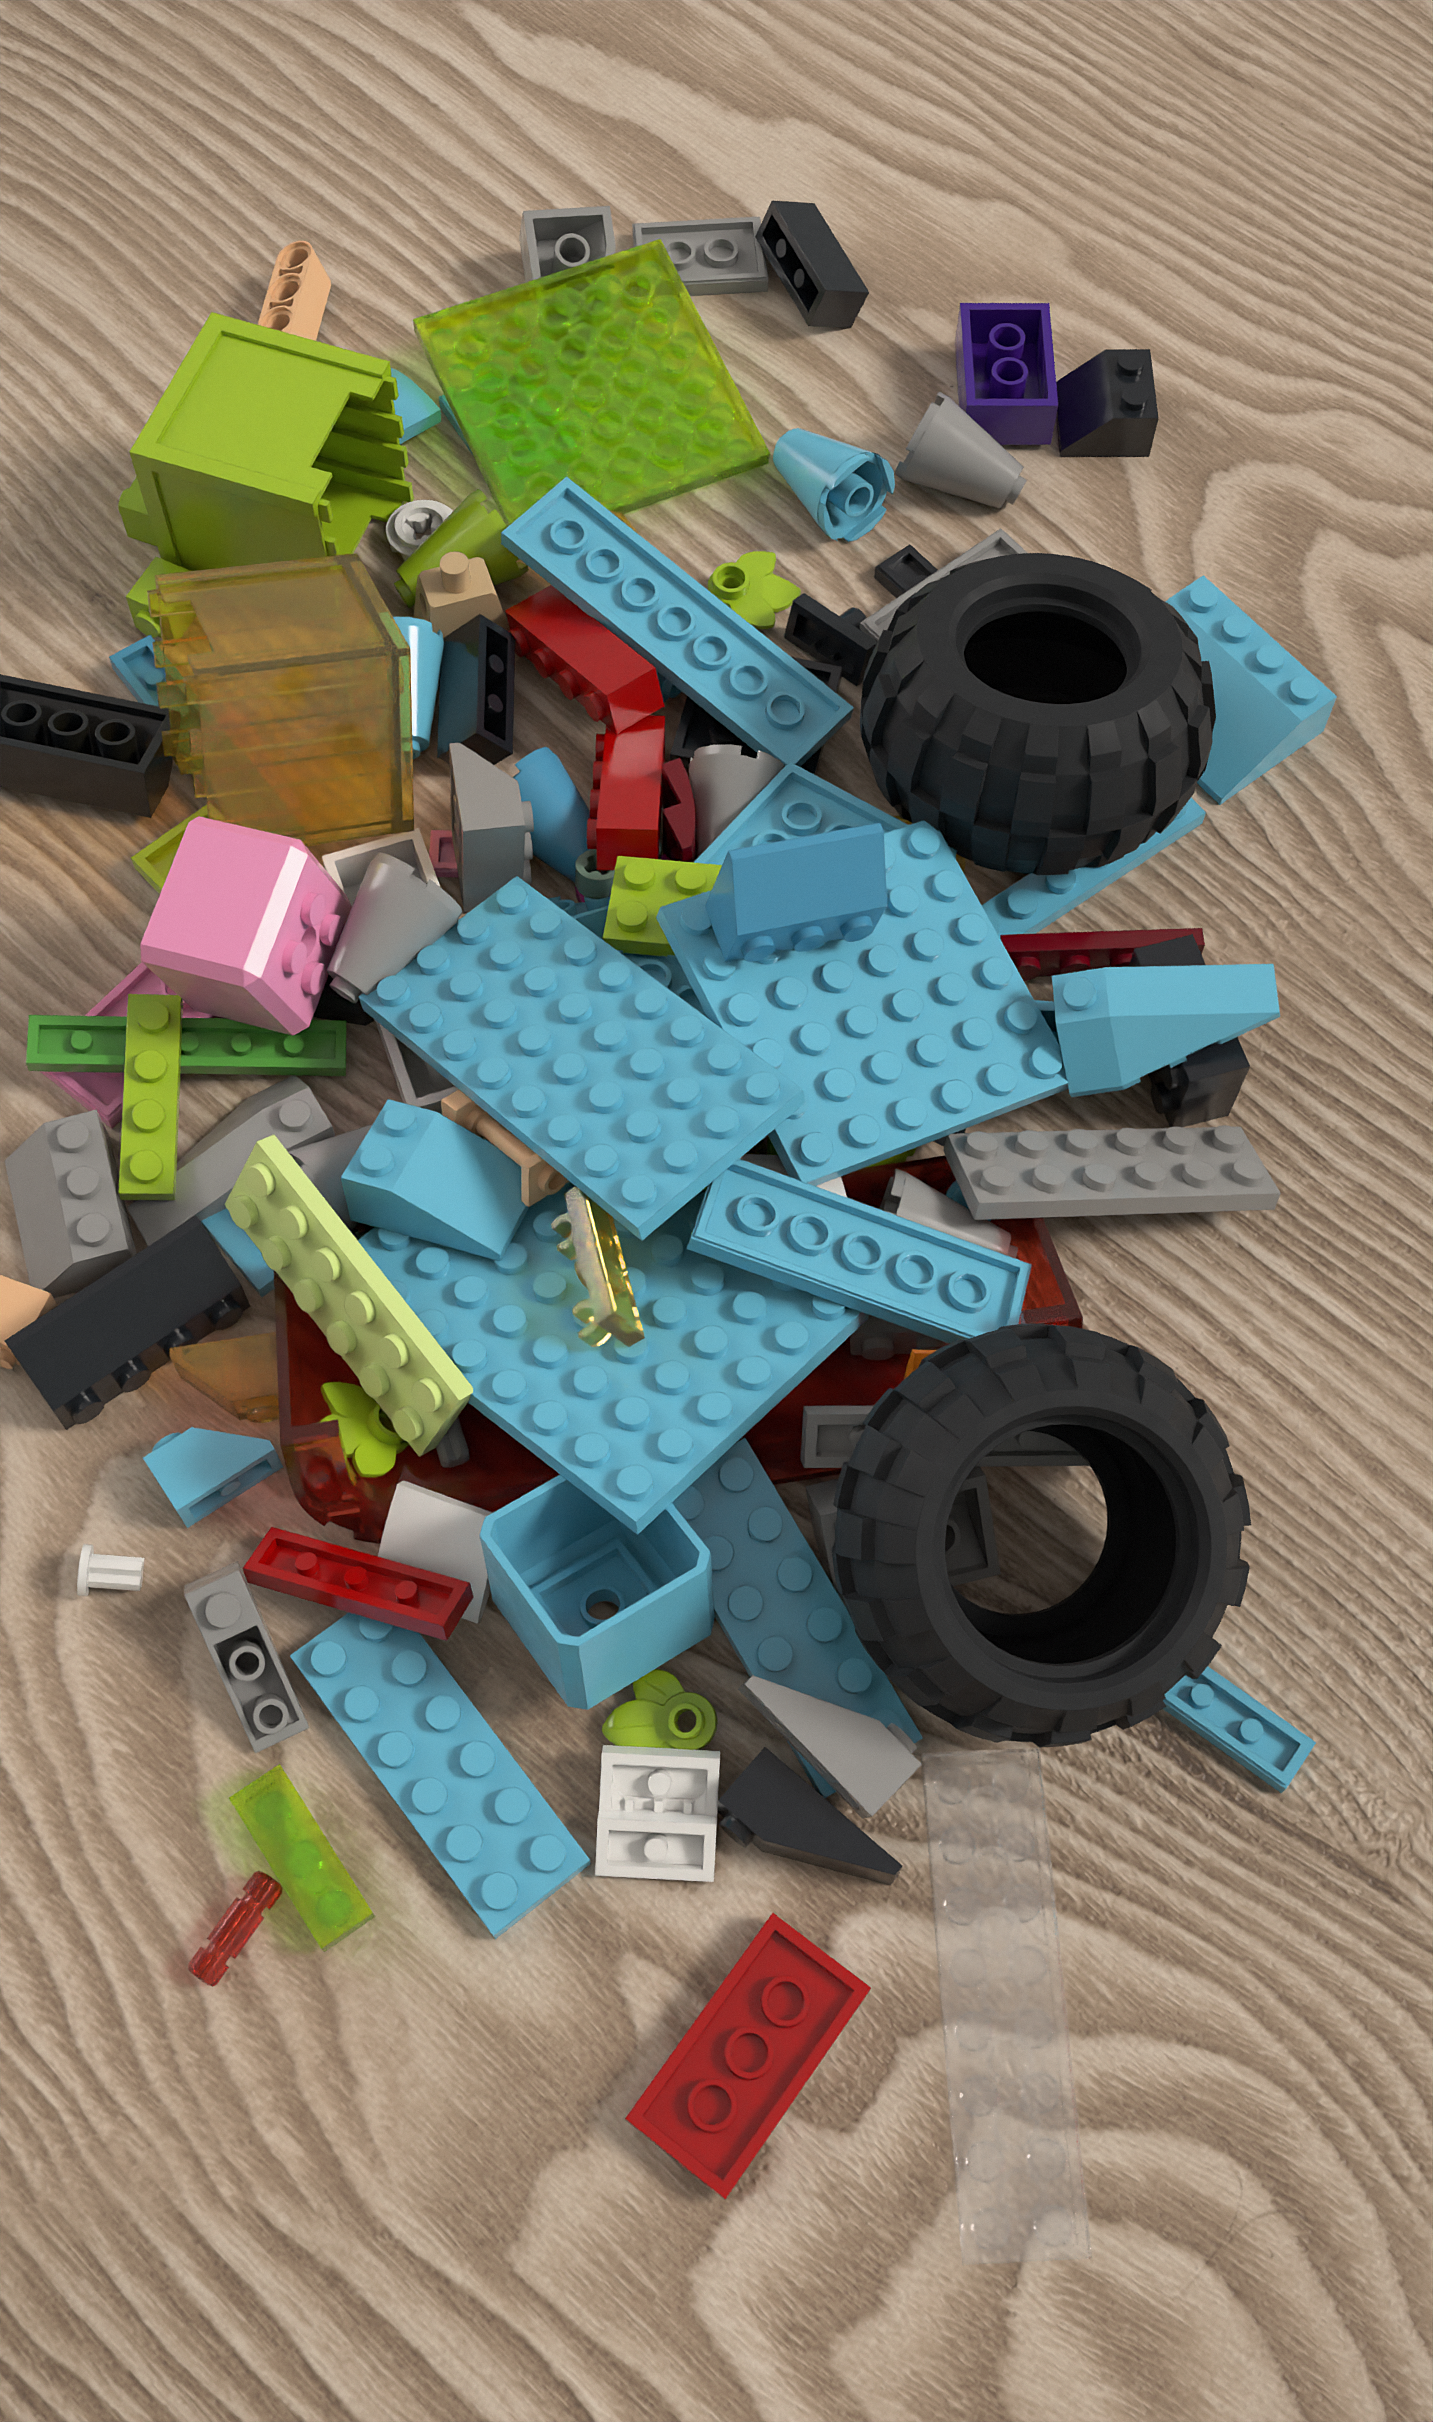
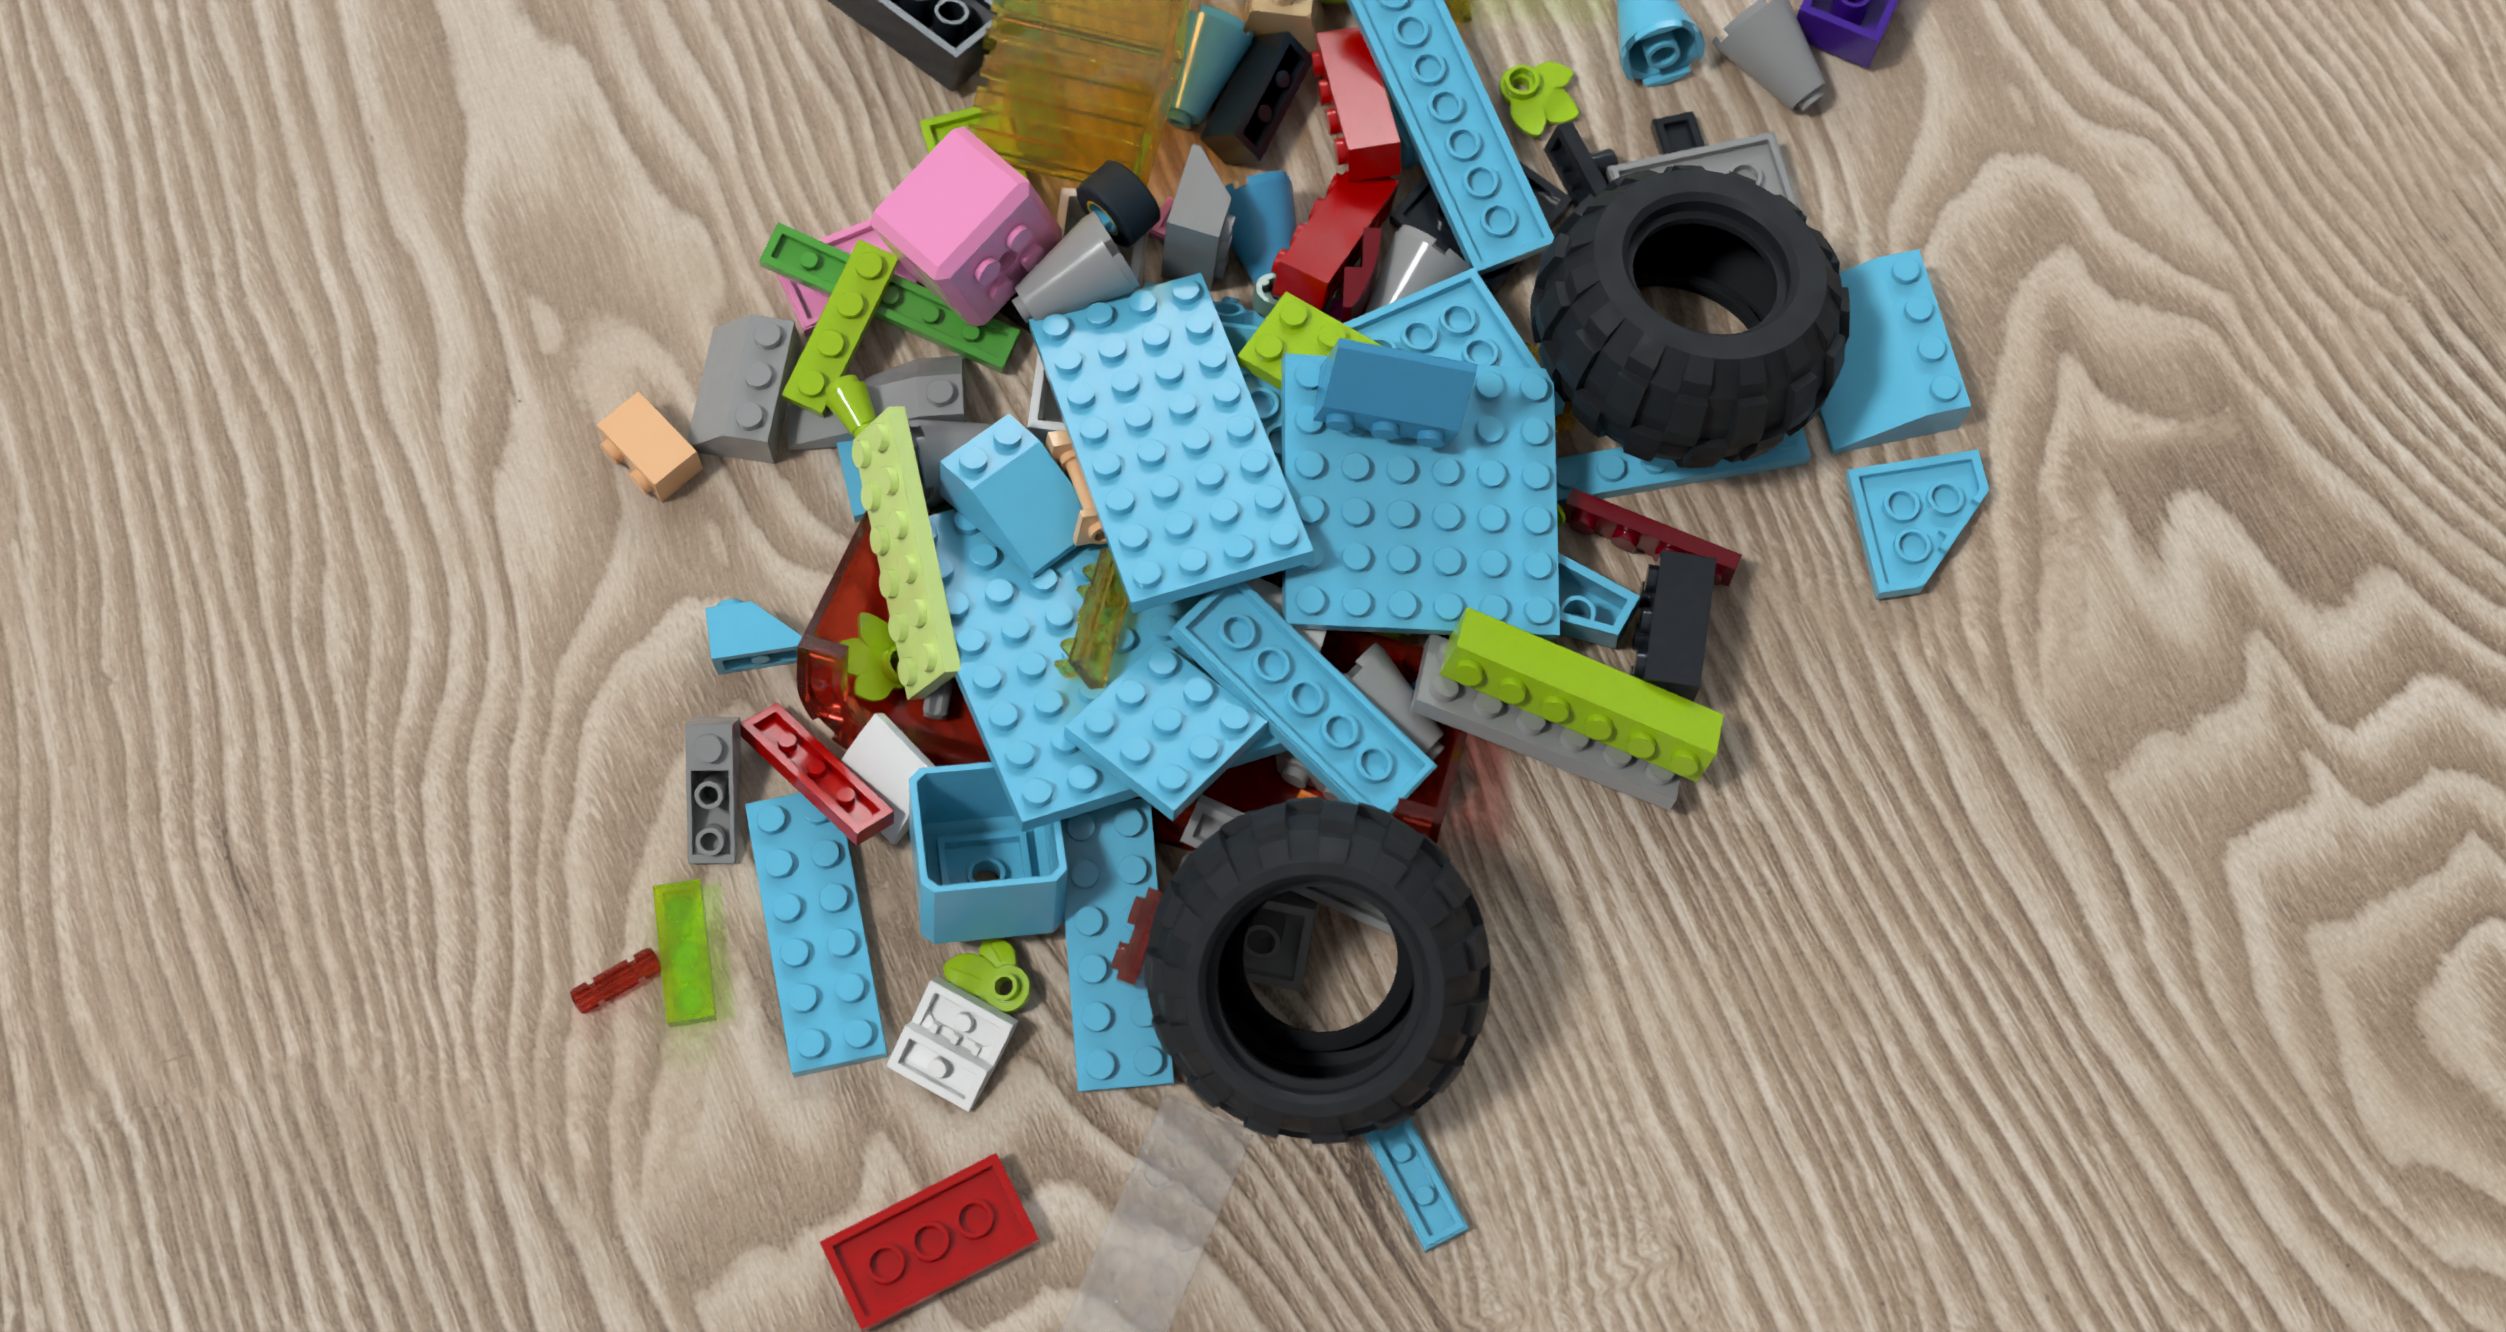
camera: 25 degrees right, 5 degrees up
(108, 1571) = (644, 681): white piece -> none
(126, 1322) = (743, 501): black slope -> none
(203, 1168) = (851, 403): none -> lime cone
(234, 1374) = (801, 571): clear yellow slope -> none
(399, 829) = (1120, 202): none -> black wheel
(736, 1352) = (1165, 729): none -> medium azure plate
(797, 1823) = (1046, 1097): black slope -> none
(818, 1616) = (1131, 957): none -> clear red plate
(845, 1747) = (1106, 1060): light grey slope -> none
(1108, 406) = (1933, 55): black slope -> none
(1135, 1126) = (1582, 694): none -> lime brick
(1139, 1019) = (1626, 610): medium azure wedge -> none
(1334, 827) = (1913, 515): none -> medium azure plate

